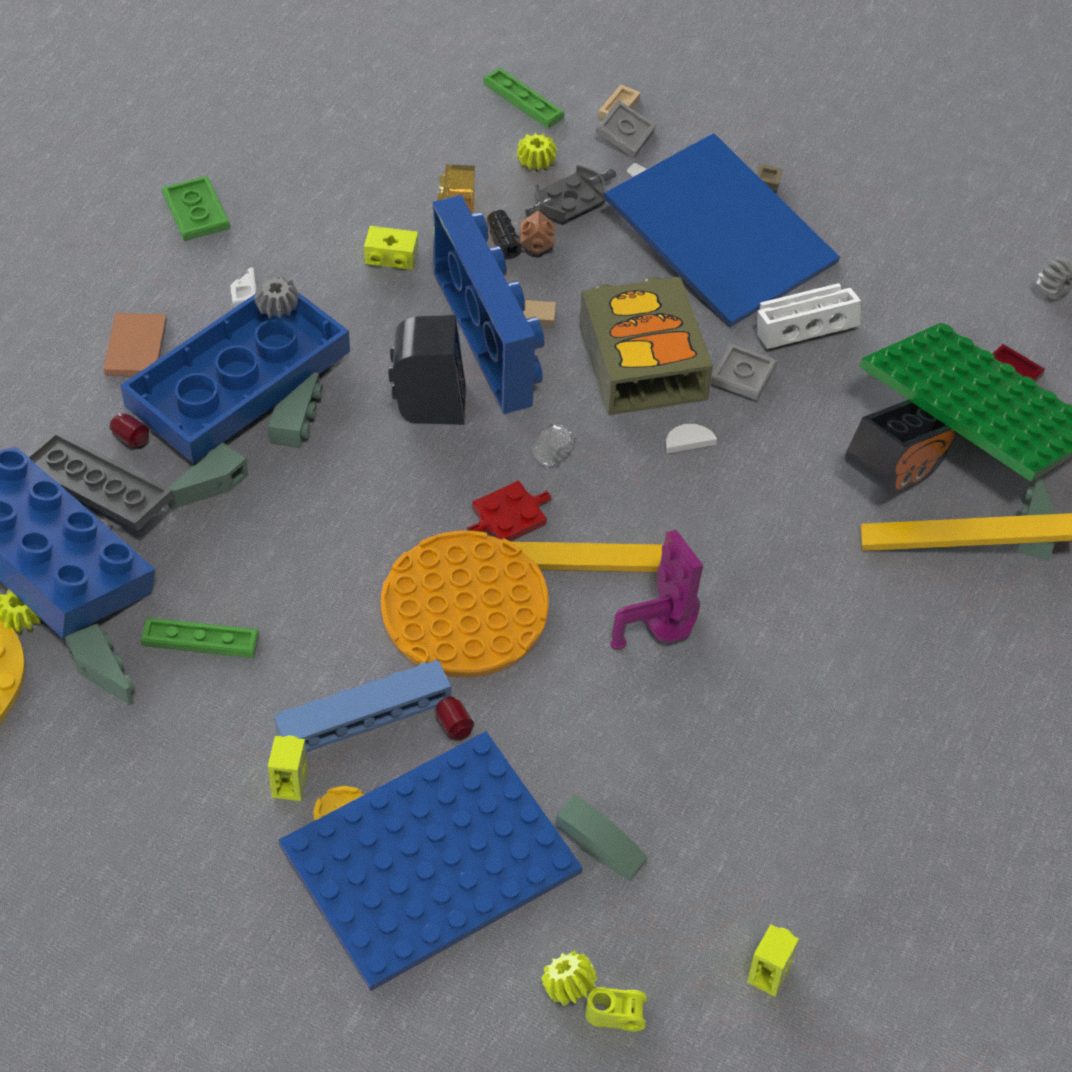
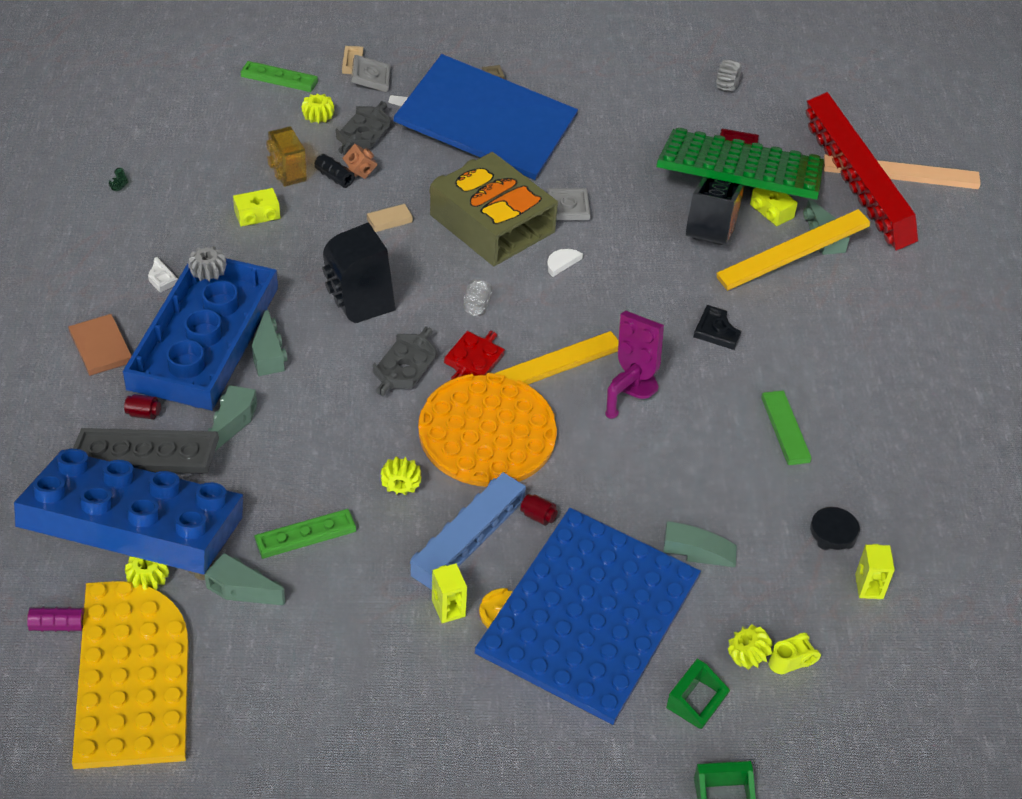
camera: 30 degrees left, 5 degrees down
(195, 208) = (78, 231): bright green tile -> none
(269, 168) = (120, 181): none -> clear green arm
(330, 617) = (400, 475): none -> neon yellow gear
(443, 478) = (410, 350): none -> dark grey plate
(472, 987) = (696, 673): none -> green tile
(486, 304) = (341, 197): blue plate -> none
(774, 889) = (834, 528): none -> black tile
(807, 315) = (587, 152): white brick -> none
(807, 745) = (786, 428): none -> bright green tile
(813, 591) = (716, 328): none -> black tile
(992, 473) = (774, 205): none -> neon yellow brick

